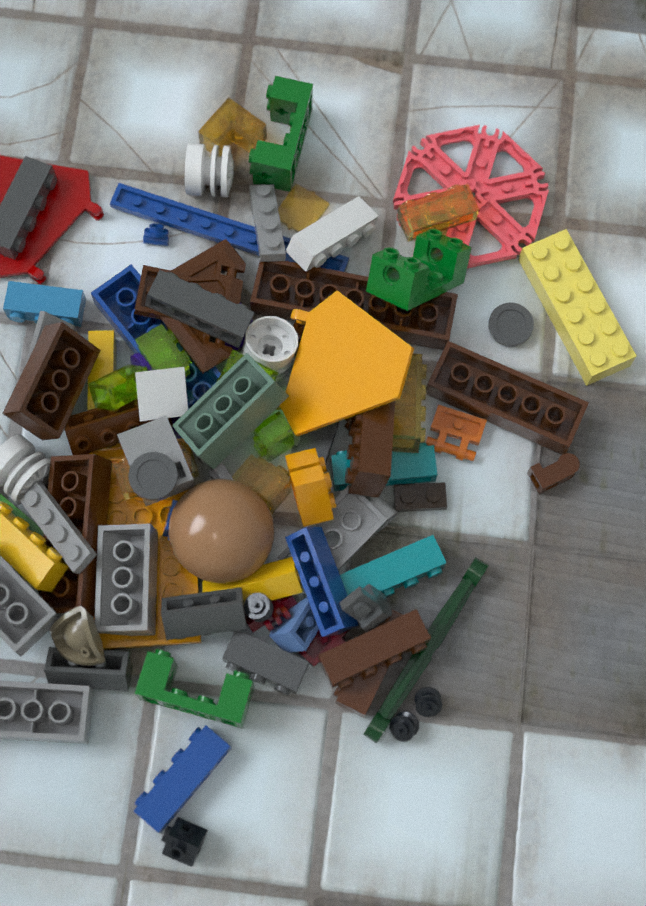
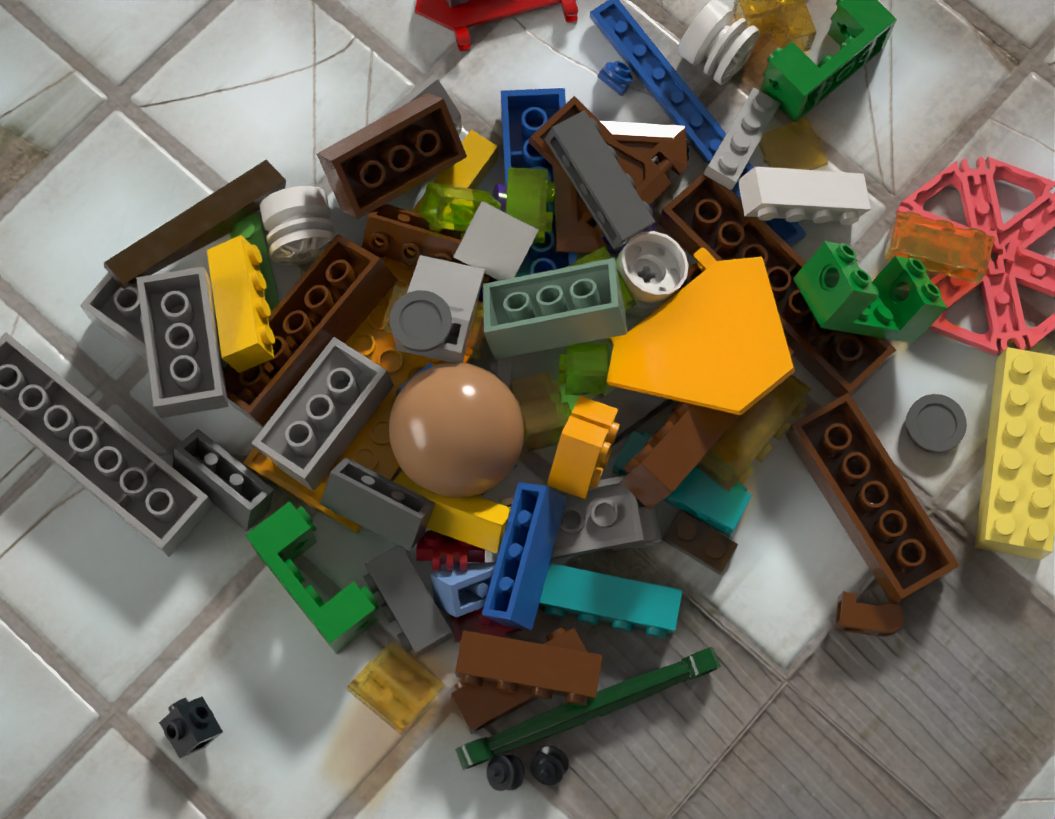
camera: 35 degrees right, 0 degrees up
(26, 301) = (462, 80): dark azure brick -> none
(57, 527) = (291, 310): light grey plate -> none
(78, 638) = (230, 438): dark tan hat -> none
(182, 779) = (236, 660): blue brick -> none
(258, 607) = (438, 536): wheel -> none
(298, 722) = (395, 688): none -> clear yellow brick
(367, 606) = (552, 615): dark grey brick -> none
(458, 426) = (796, 493): orange plate -> none

